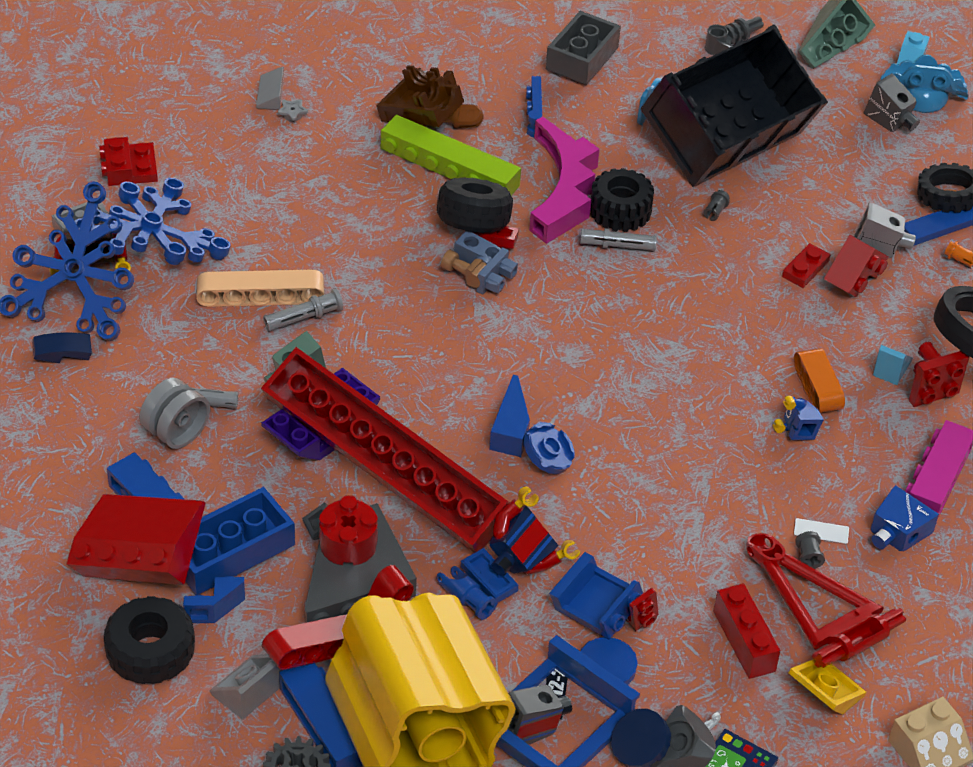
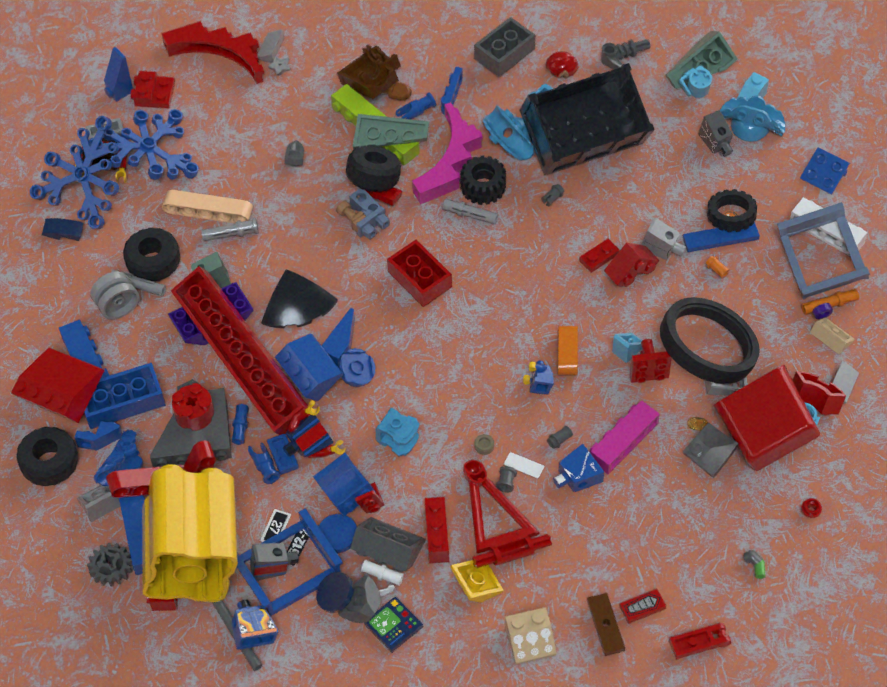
camera: 20 degrees right, 10 degrees up
(79, 146) = (117, 76): none -> blue slope
(200, 93) = (197, 39): none -> red arch
(206, 354) = (151, 241): none -> black tyre
(262, 617) = (122, 458): none -> blue piece
(356, 209) = (294, 154): none -> dark grey plate
(413, 547) = (240, 424): none -> blue pin
(432, 383) = (296, 302): none -> black brick
(478, 157) = (388, 131): none -> sand green wing
(488, 454) = (309, 366): none -> blue slope
(496, 131) = (416, 107): none -> blue piece
(514, 668) = (276, 524): none -> sticker
(586, 319) = (419, 273): none -> red brick
(641, 516) = (398, 432): none -> dark azure piece
(647, 150) = (519, 142): none -> dark azure piece
(662, 58) = (562, 64): none -> red hair
(685, 664) = (387, 544): none -> dark grey slope
(693, 701) = (382, 572): none -> white pin
(758, 514) = (484, 444): none -> dark tan tile
(842, 55) = (698, 83): none -> medium azure piece
(853, 489) = (559, 437): none -> dark grey pin

